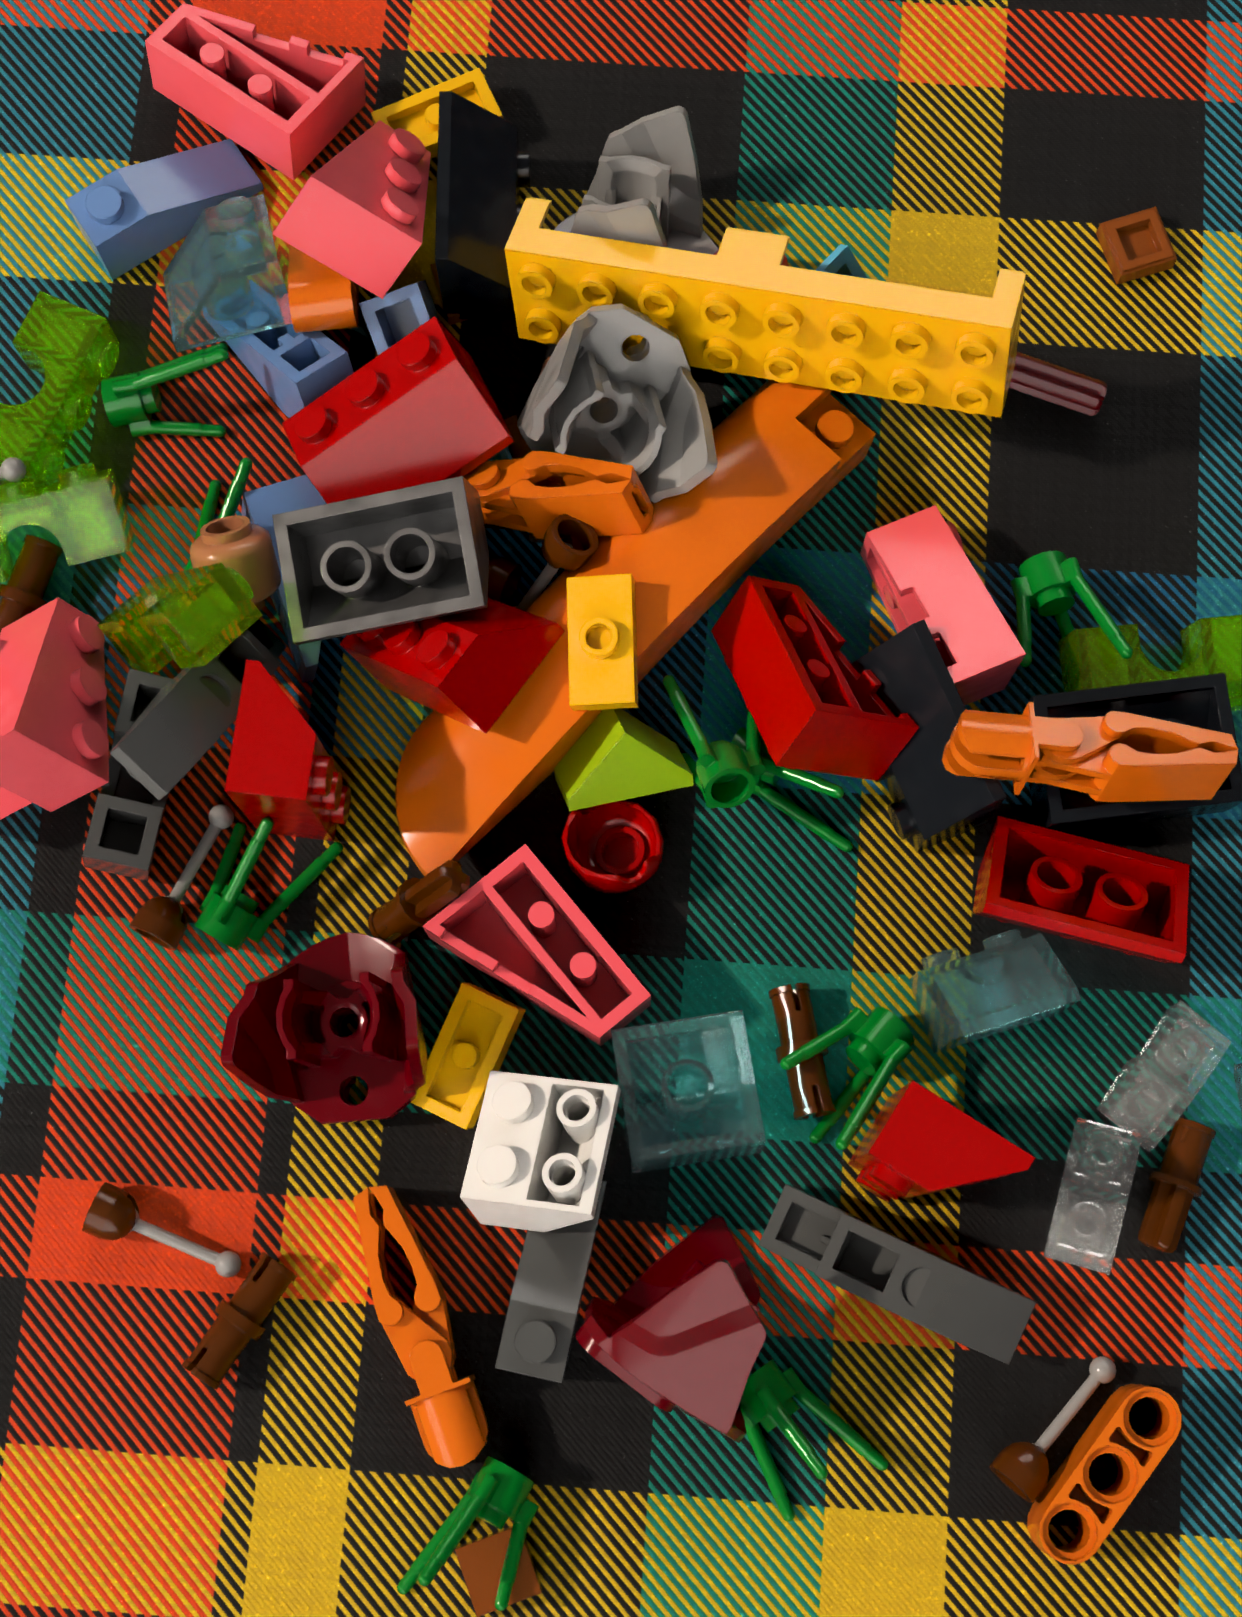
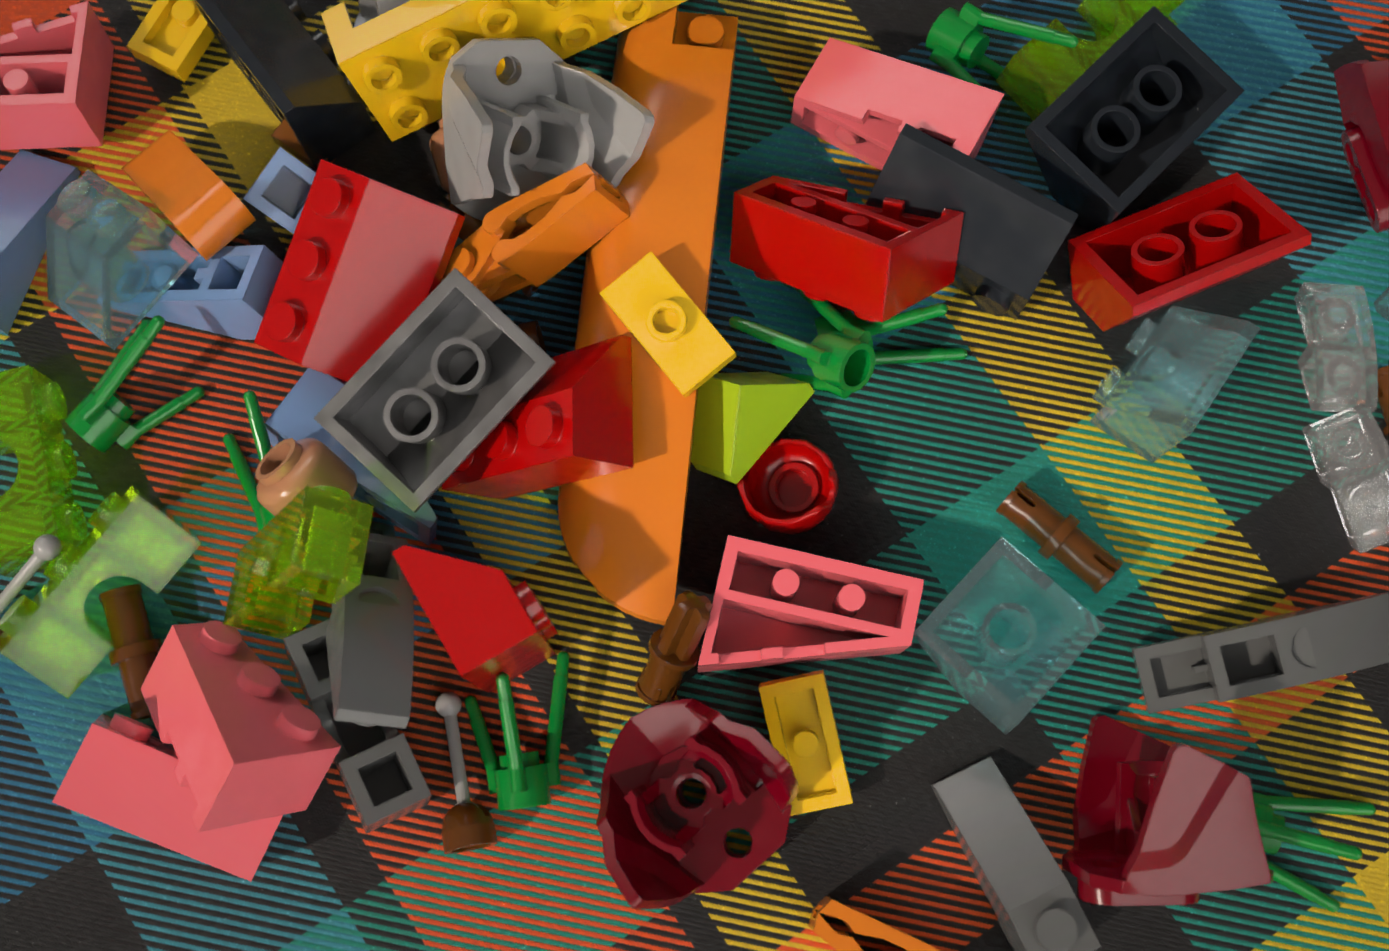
camera: 40 degrees left, 0 degrees up
(364, 208) = (192, 117): coral wedge -> none
(539, 1151) = (938, 771): white slope -> none
(571, 555) = (573, 270): reddish brown hinge -> none
(876, 1048) = (1114, 486): green plant -> none
(930, 1147) = (1236, 534): red slope -> none
(1105, 756) = (1124, 131): orange arm -> none

